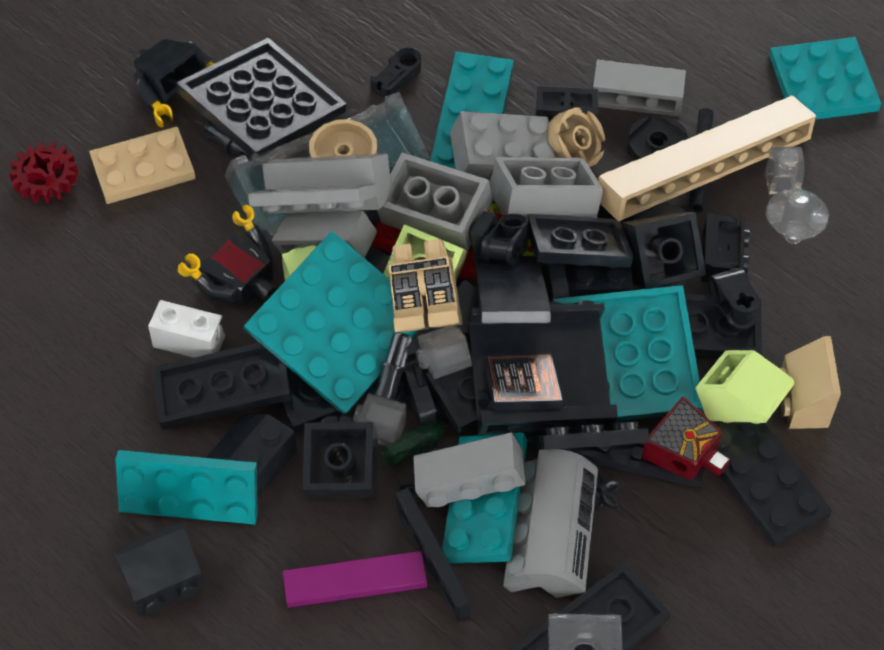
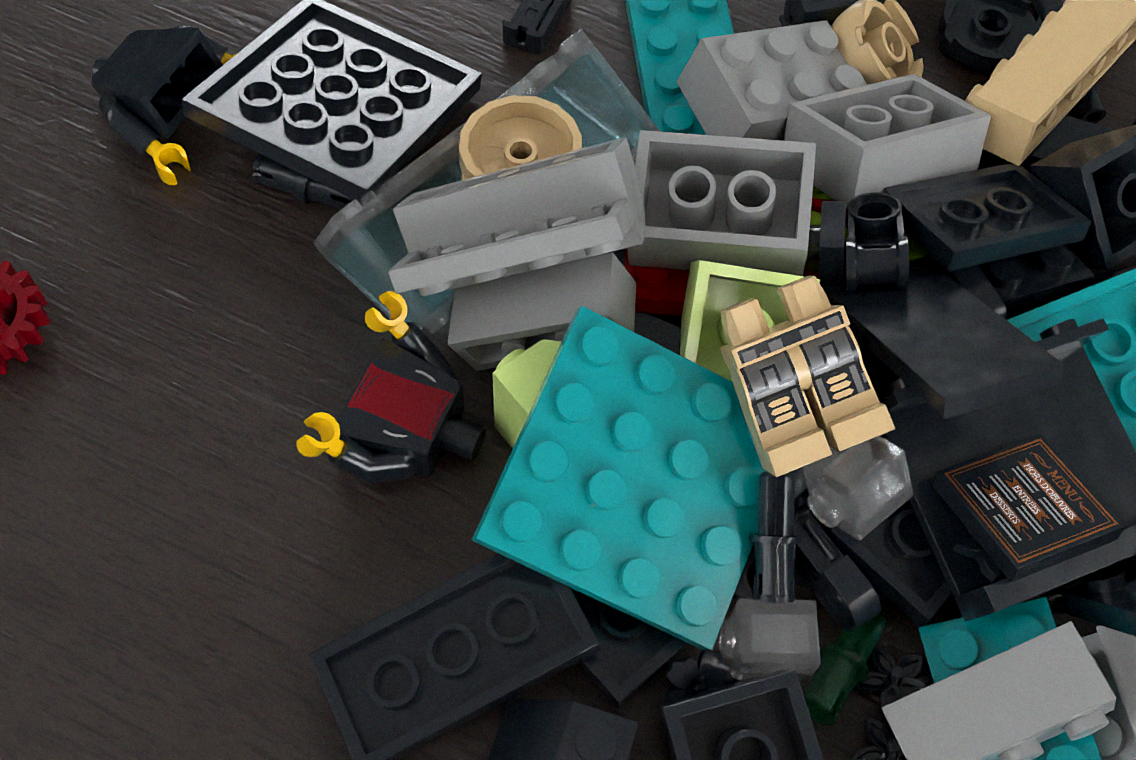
camera: 20 degrees left, 5 degrees up
(142, 165) = (159, 261): tan plate -> none
(185, 330) = (347, 560): white hinge -> none

